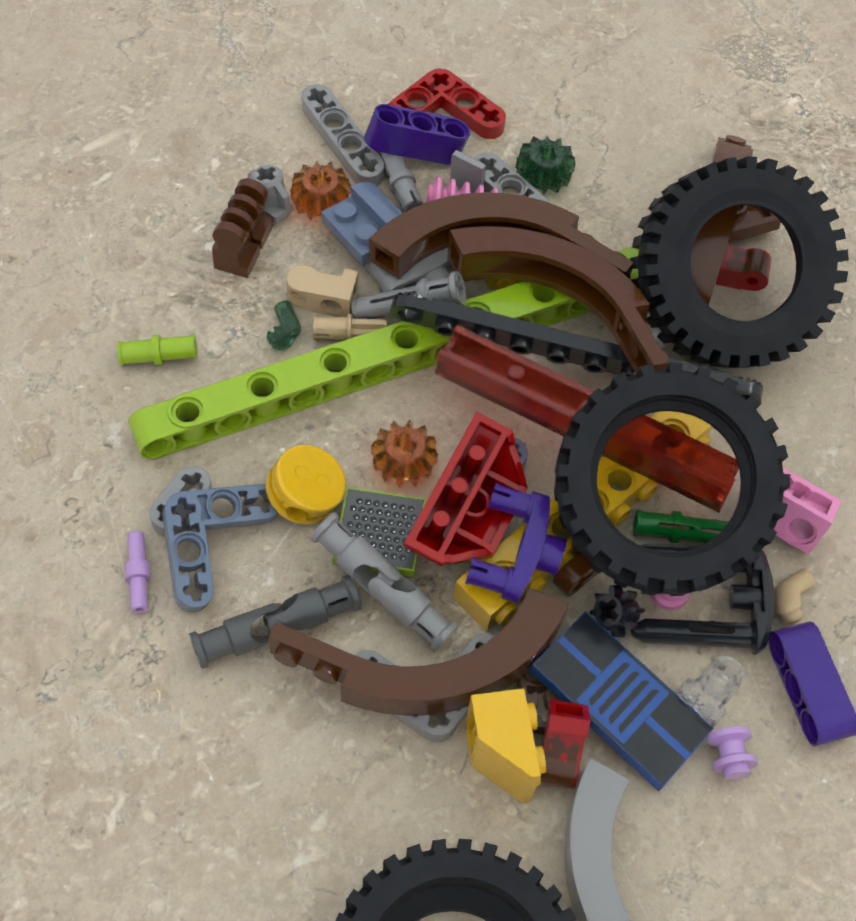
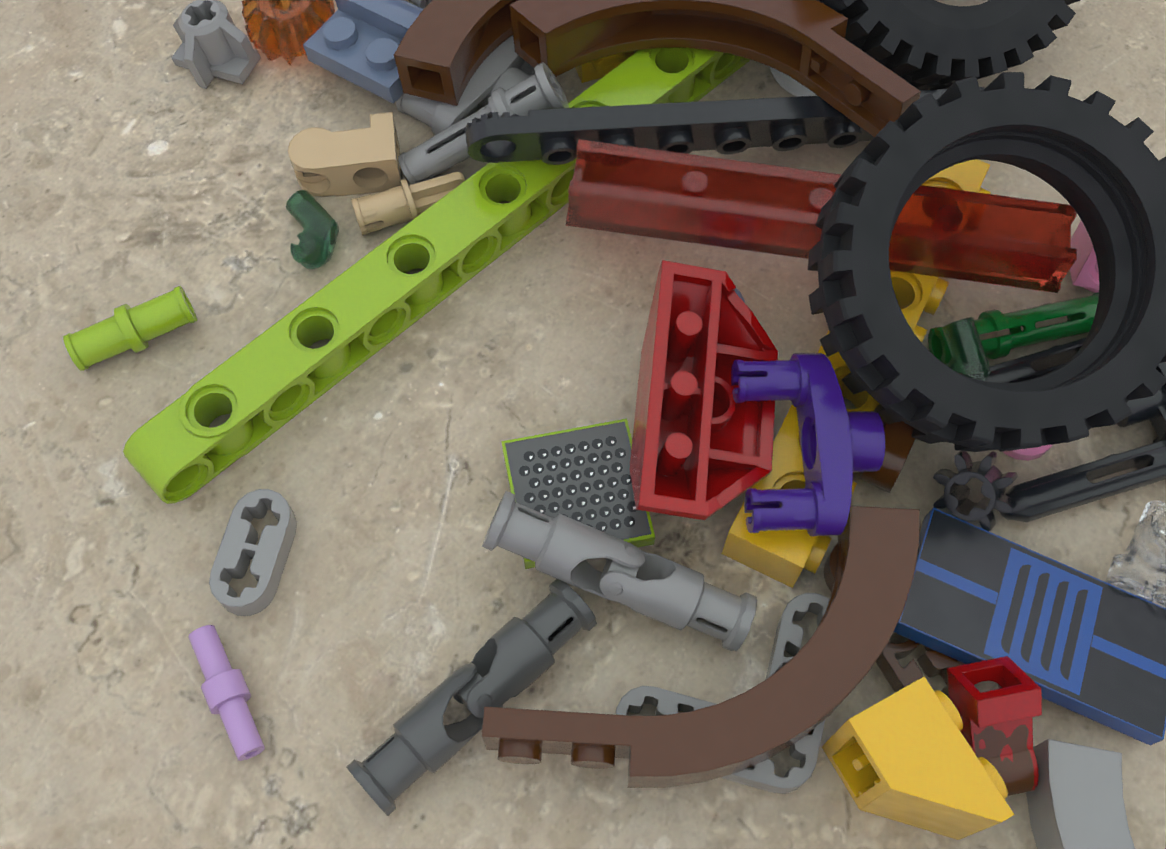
camera: 15 degrees left, 5 degrees up
(205, 519) = (298, 571): sand blue beam -> none
(242, 229) = (194, 105): reddish brown legs -> none
(305, 484) = (438, 460): yellow head -> none
(410, 466) = (546, 374): clear orange gear -> none
(647, 528) = (966, 349): none -> clear green arm

